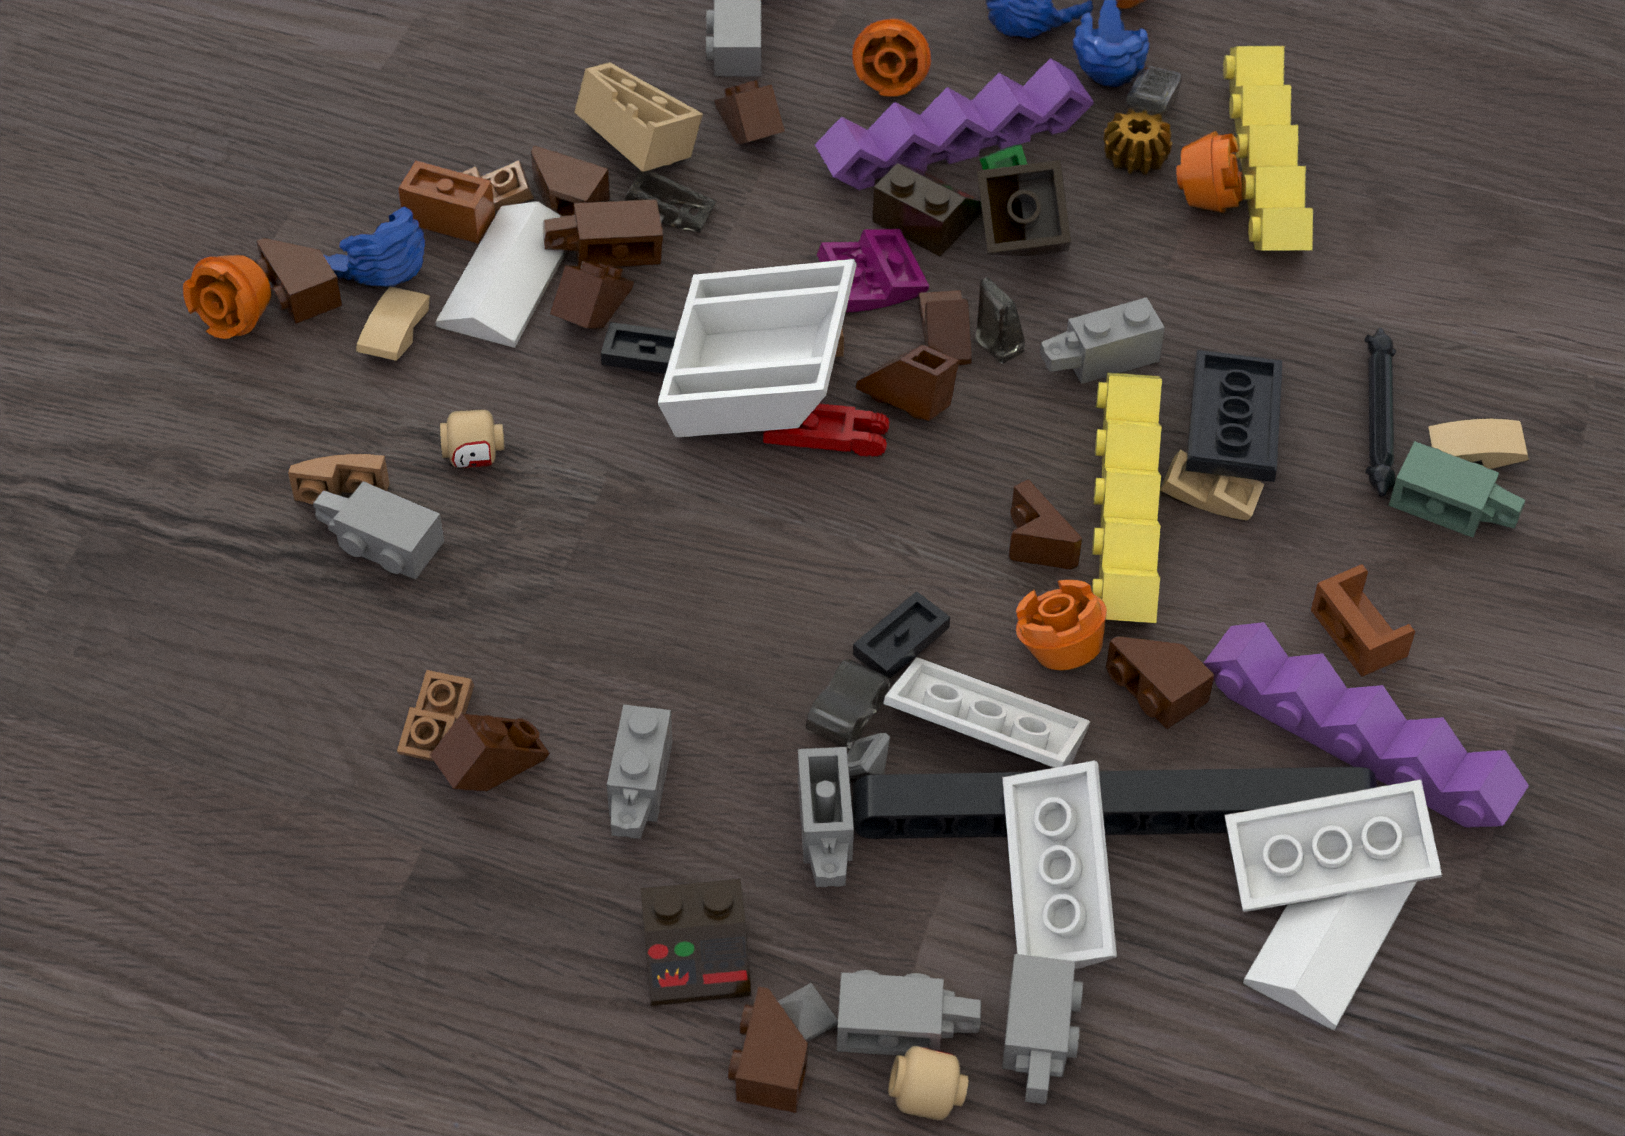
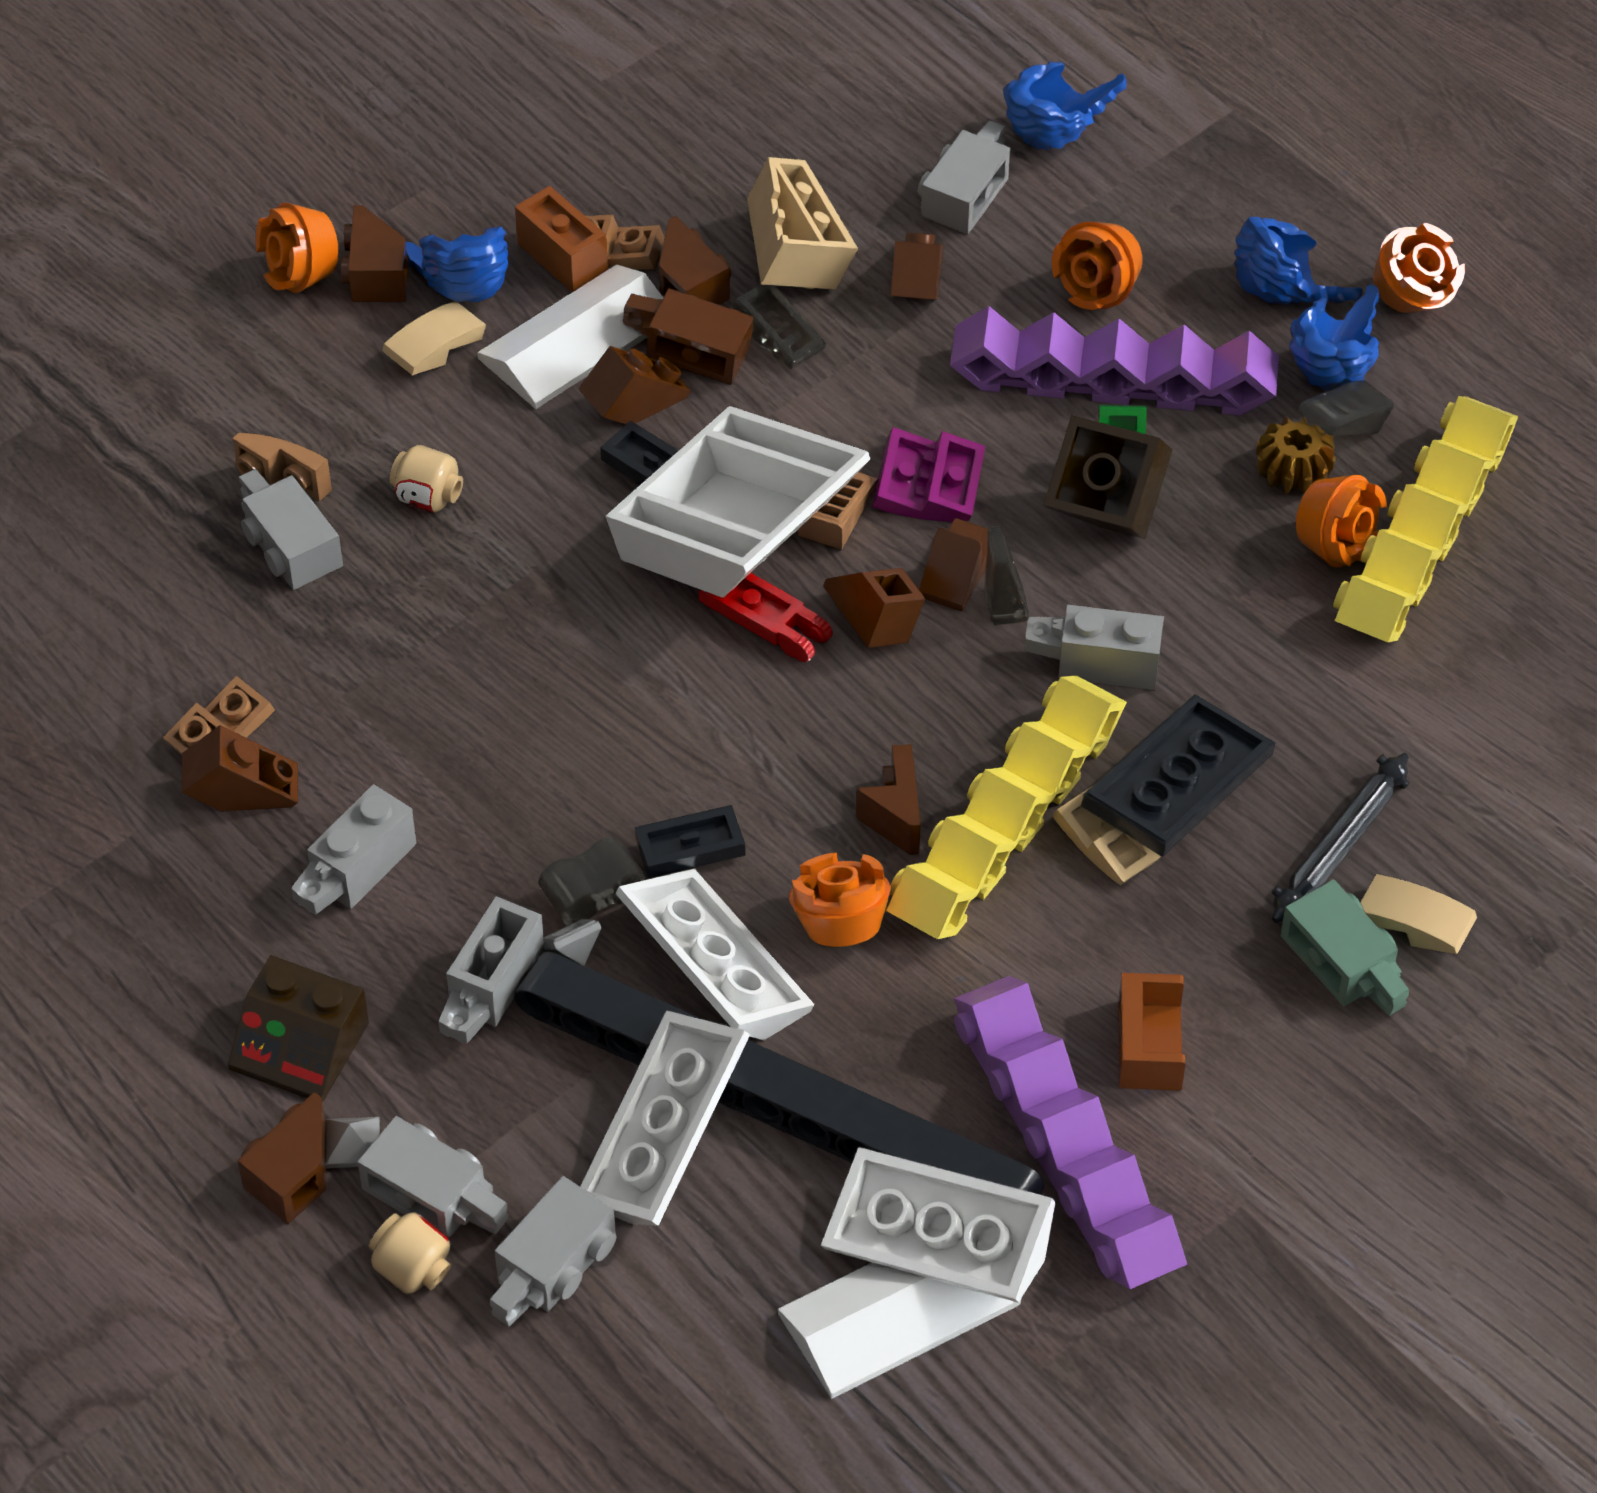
camera: 30 degrees right, 0 degrees up
(923, 208) = (1020, 429): dark brown slope -> none
(1160, 676) = (909, 997): reddish brown slope -> none

